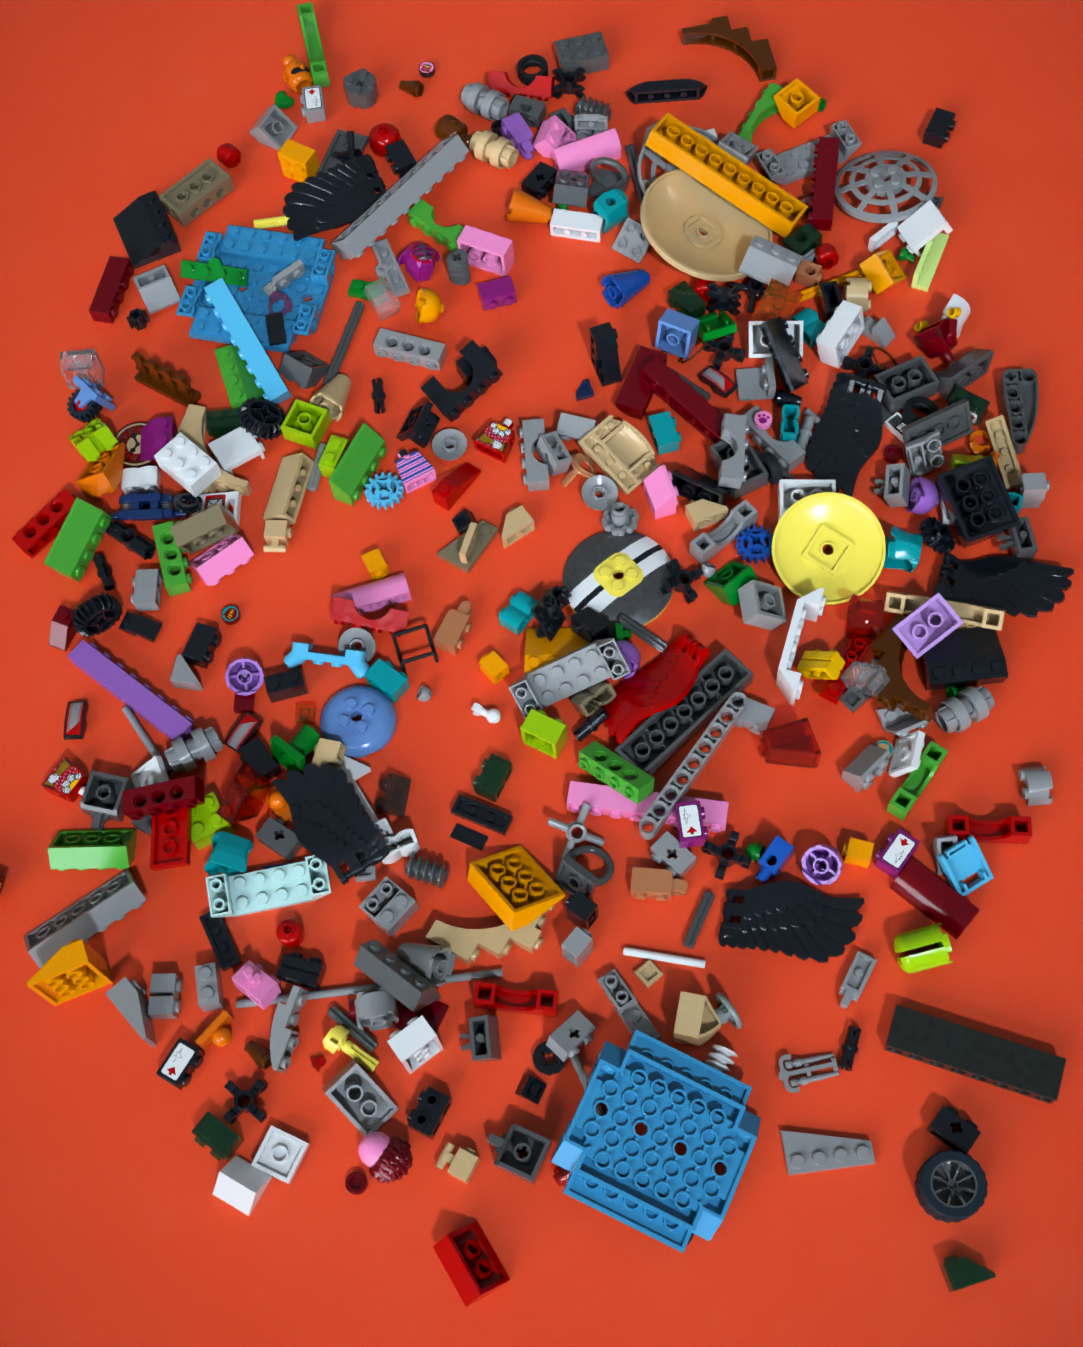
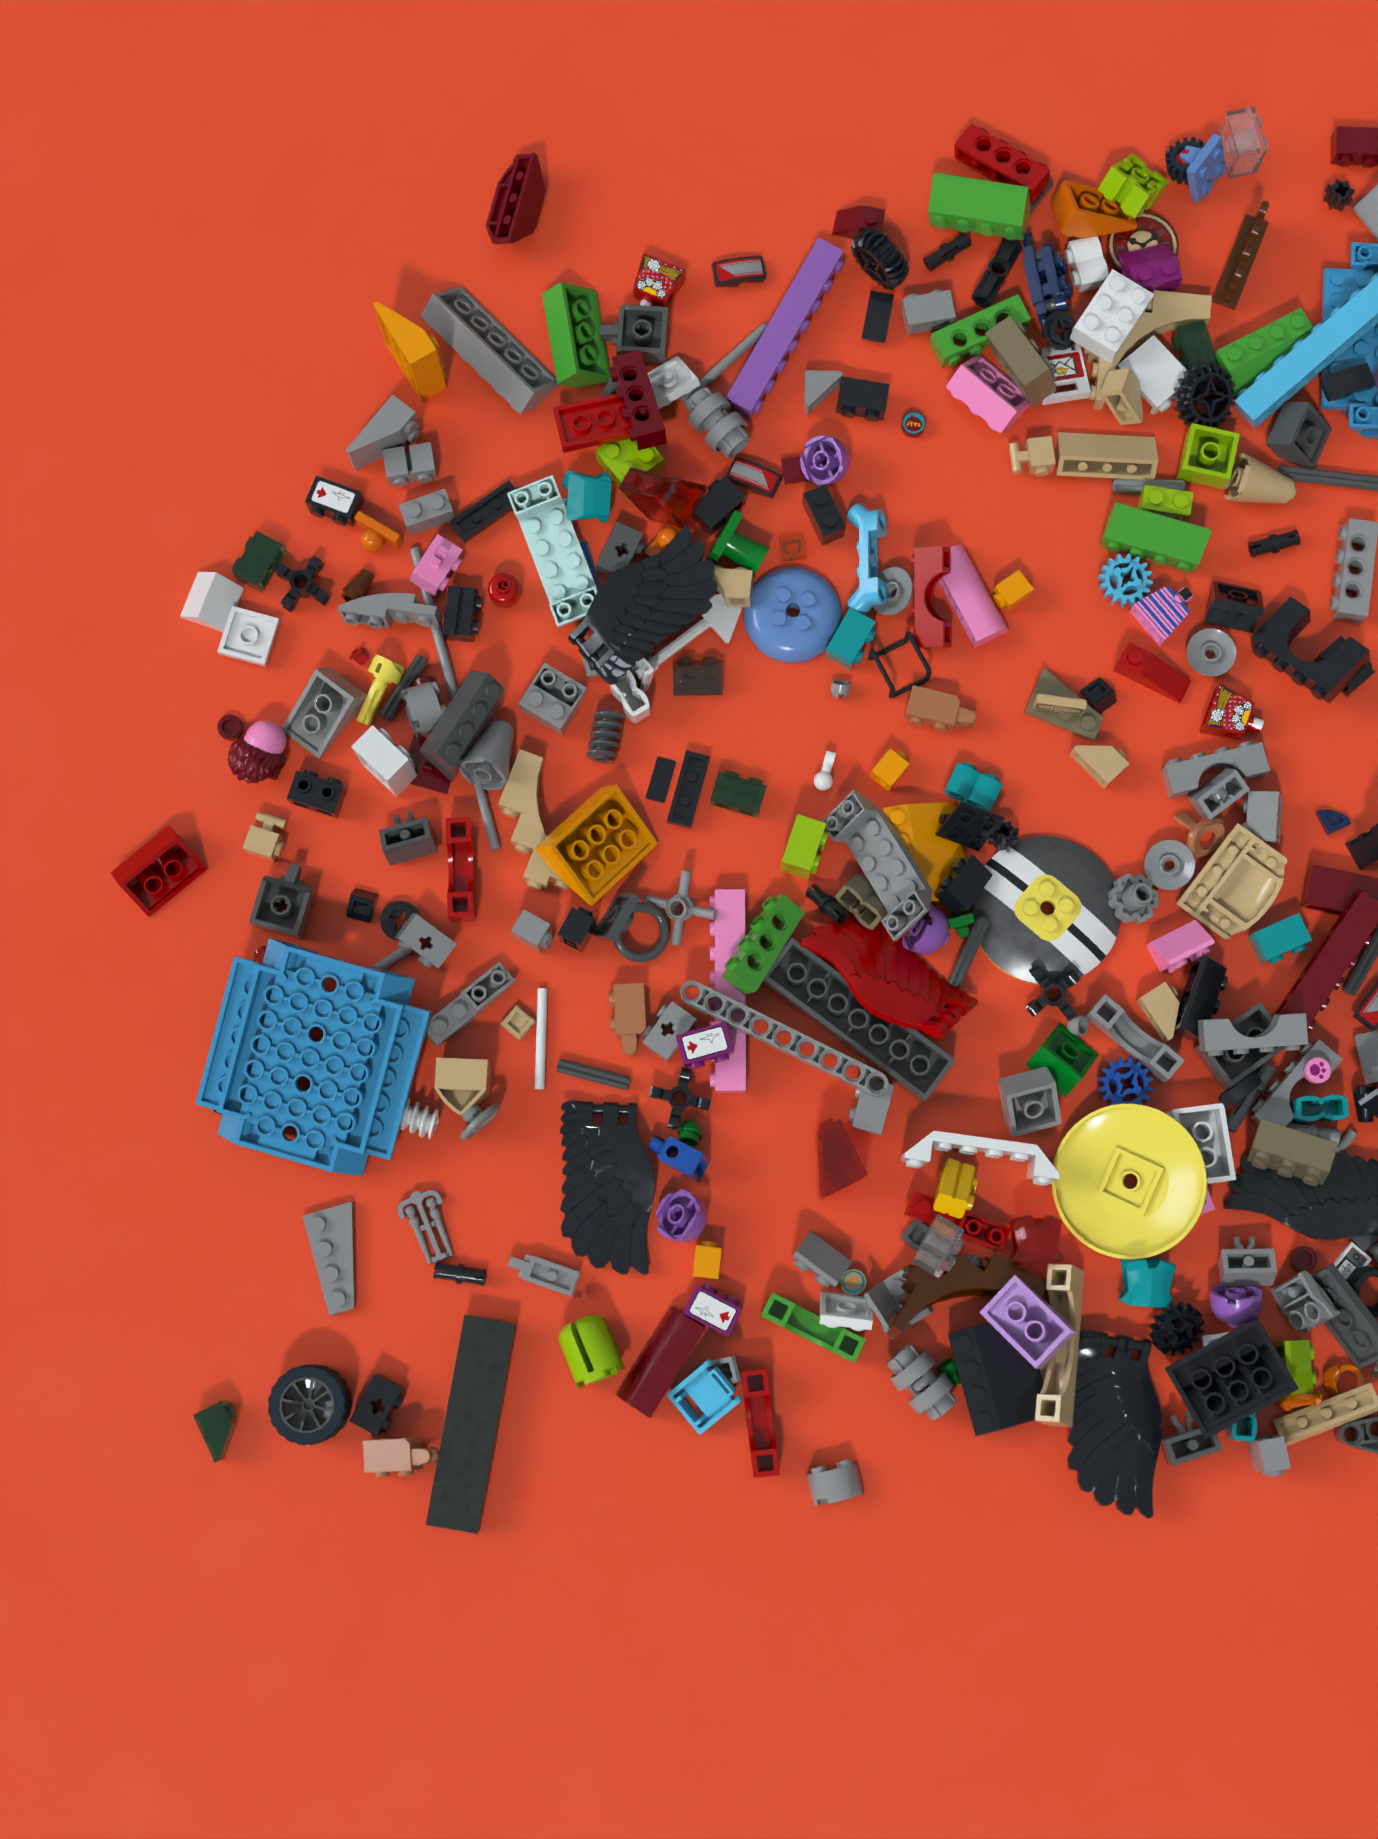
camera: 75 degrees right, 15 degrees up
(248, 469) = (1123, 396): none -> tan slope
(820, 441) = (1292, 1153): none -> dark tan brick
(998, 1117) = (396, 1455): none -> nougat hinge

